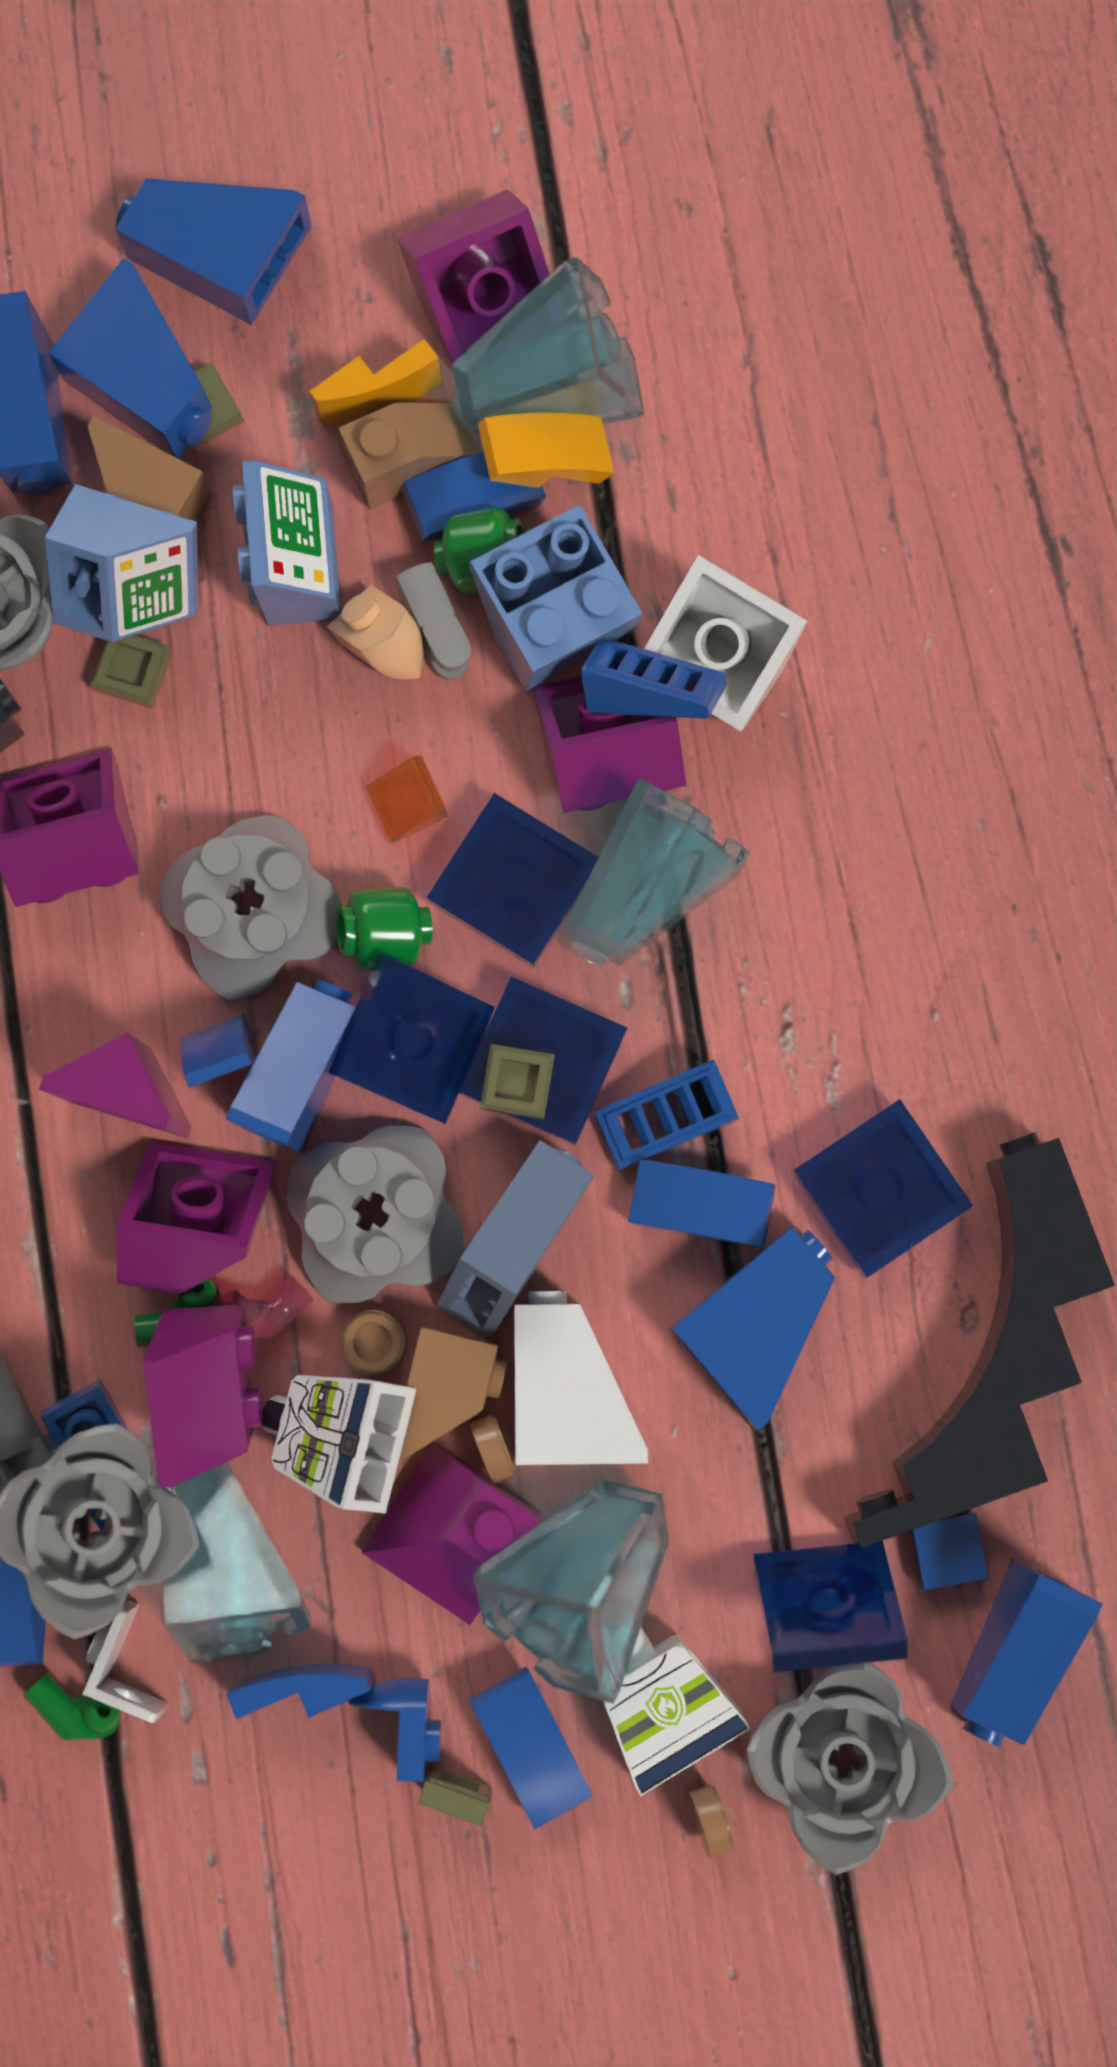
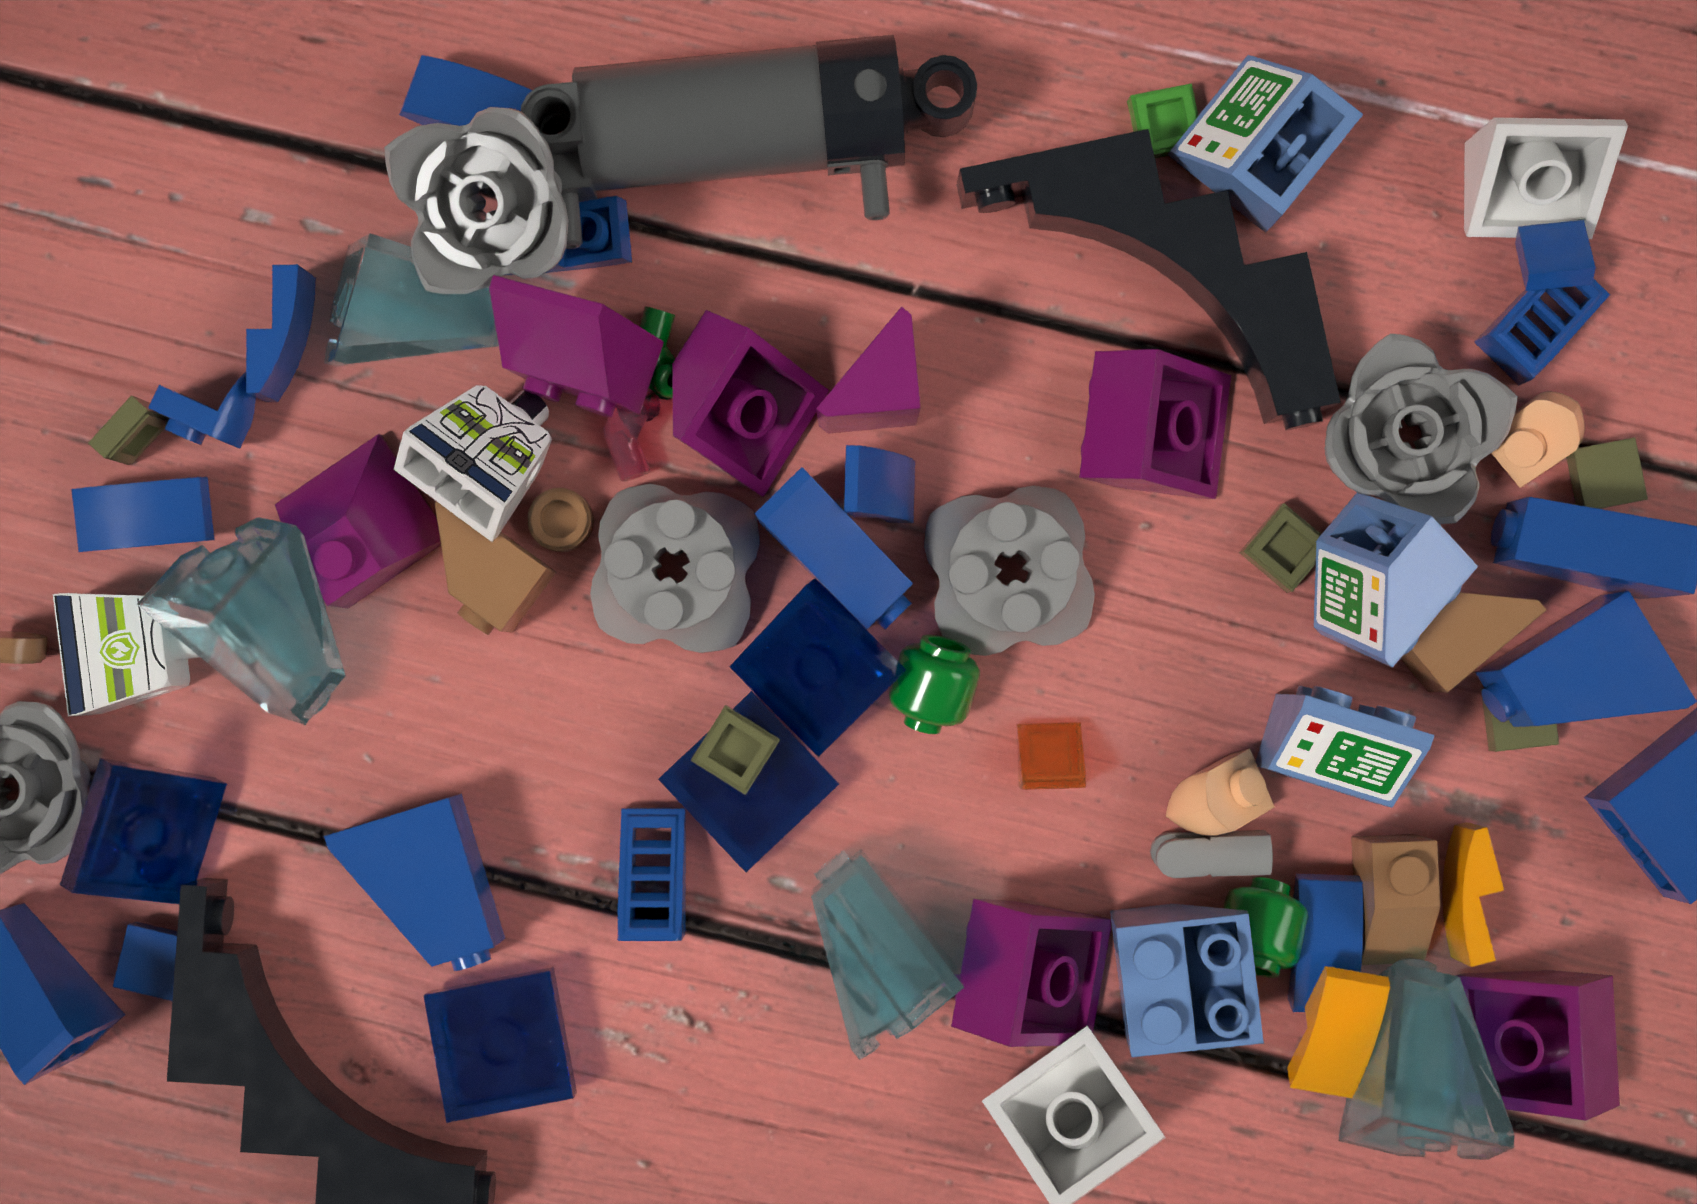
camera: 115 degrees right, 5 degrees up
(72, 1716) = (345, 124): green arm -> none
(103, 1655) = (354, 163): white bracket -> none
(493, 1448) = (415, 589): medium nougat tile -> none
(513, 880) = (930, 825): clear blue plate -> none
(514, 1239) = (593, 689): sand blue slope -> none
(566, 1391) = (437, 676): white slope -> none
(647, 683) = (1059, 1034): blue slope -> none
(702, 1203) = (555, 872): blue slope -> none

